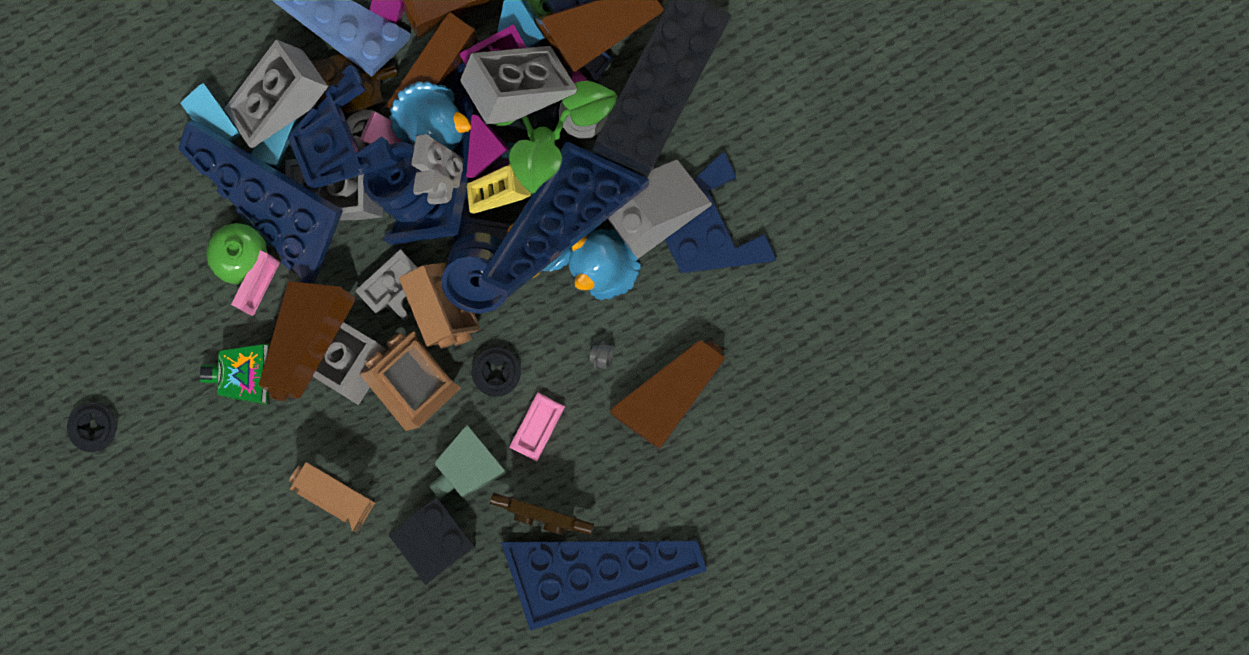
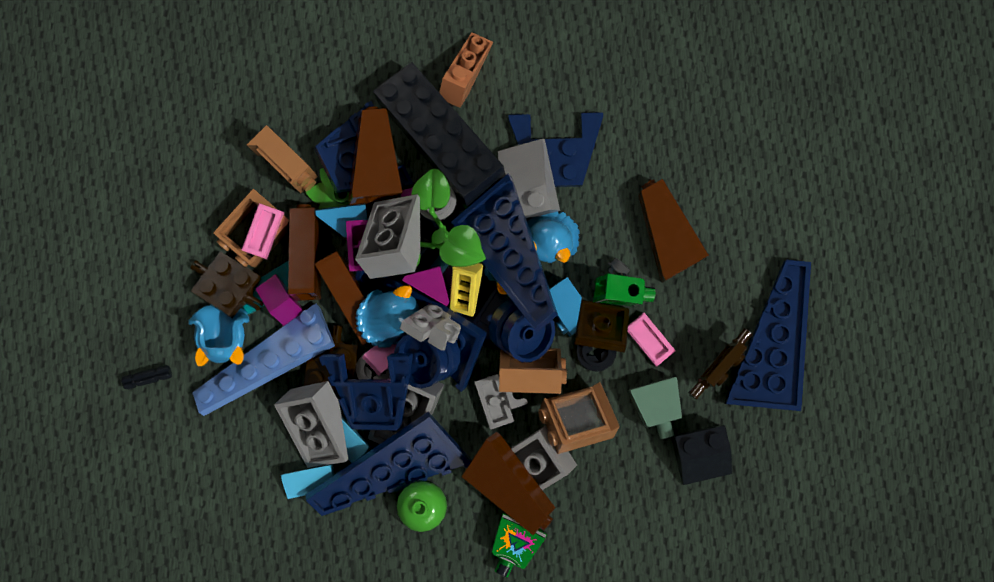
camera: 60 degrees left, 0 degrees up
(255, 283) = (451, 502): bright pink tile -> none
(331, 495) = (639, 515): medium nougat window -> none
(526, 364) = (602, 326): none -> dark brown plate
(533, 313) = (567, 304): none -> dark azure slope
(572, 357) = (614, 290): none -> green torso
(754, 79) = (464, 69): none -> nougat slope

